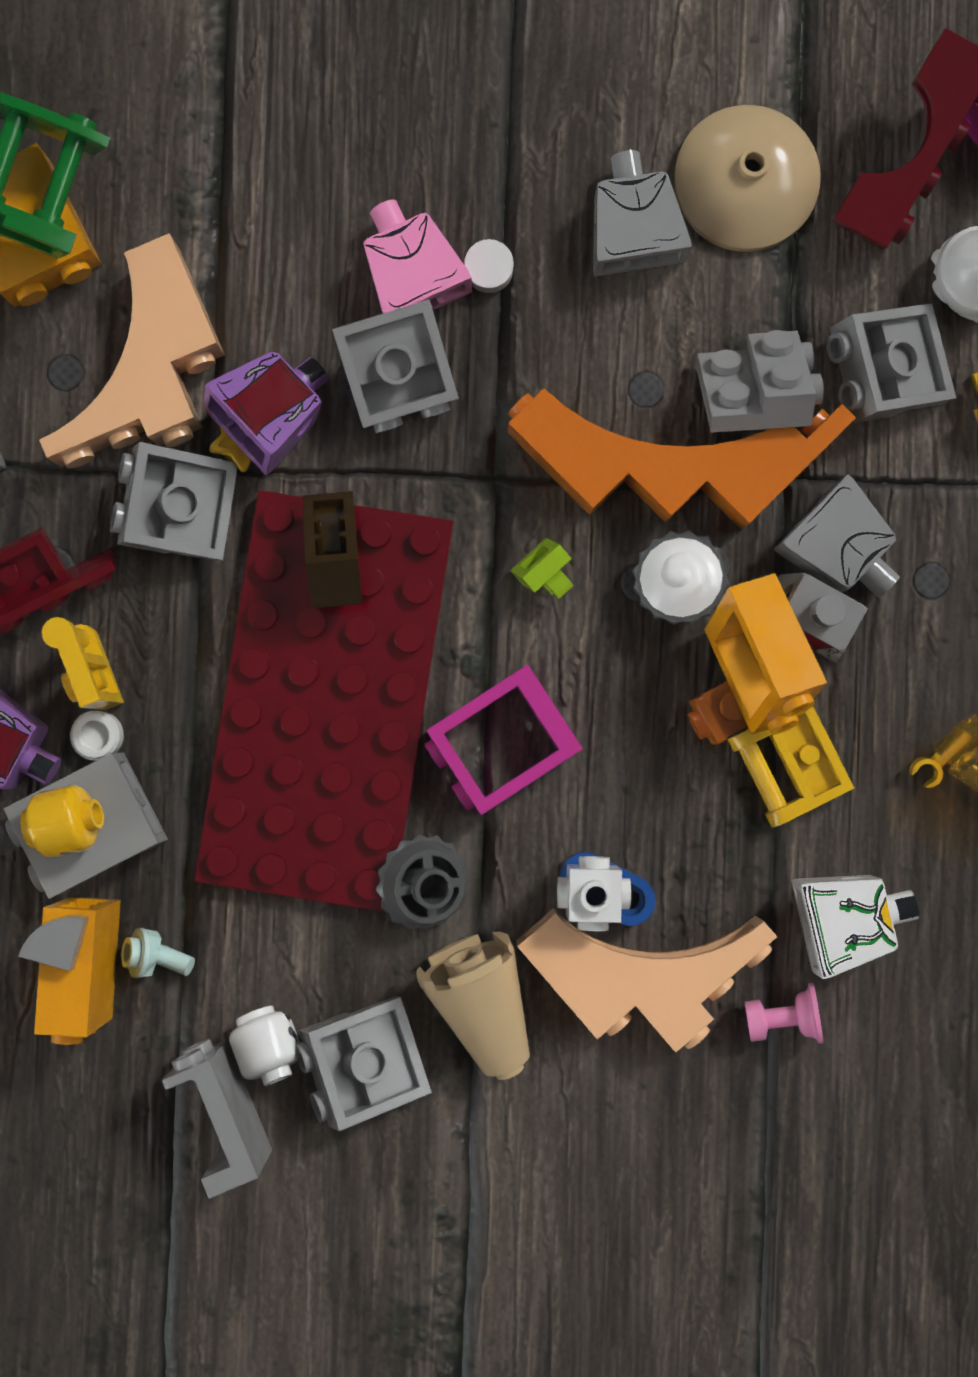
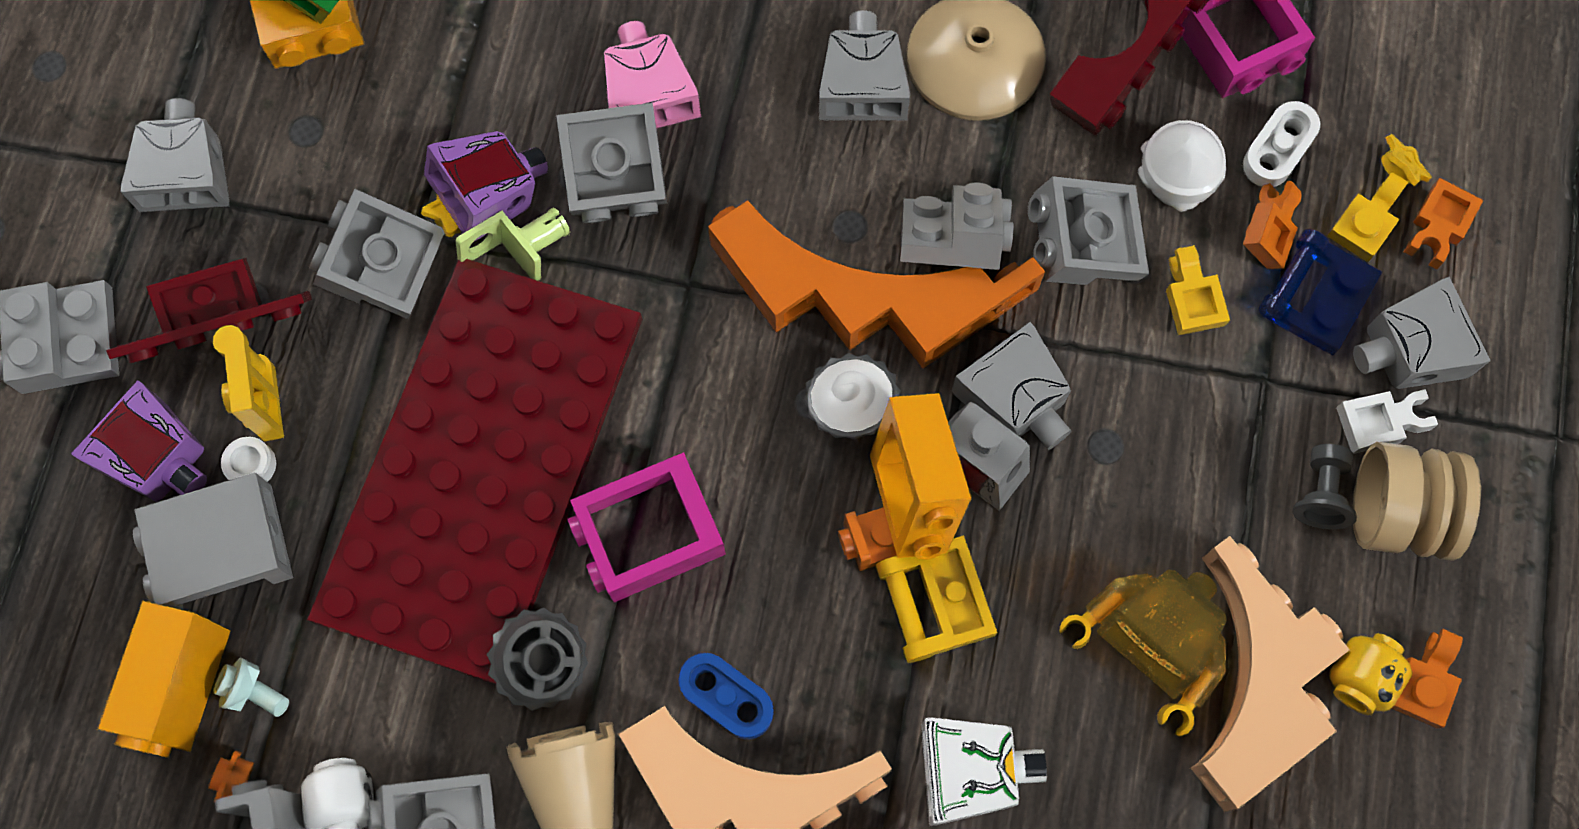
camera: 15 degrees right, 15 degrees down
(56, 942) = (145, 634): light grey tile -> none
(61, 821) = (186, 525): yellow head -> none
(146, 391) = (376, 150): light nougat arch -> none
(160, 1041) = (229, 774): none -> orange plate
(317, 465) = (520, 242): none -> yellowish green bracket
(332, 550) = (513, 315): dark brown arch -> none
(489, 265) = (720, 94): white tile -> none
(543, 568) = (720, 371): lime tile -> none
(581, 877) = (707, 708): white brick -> none

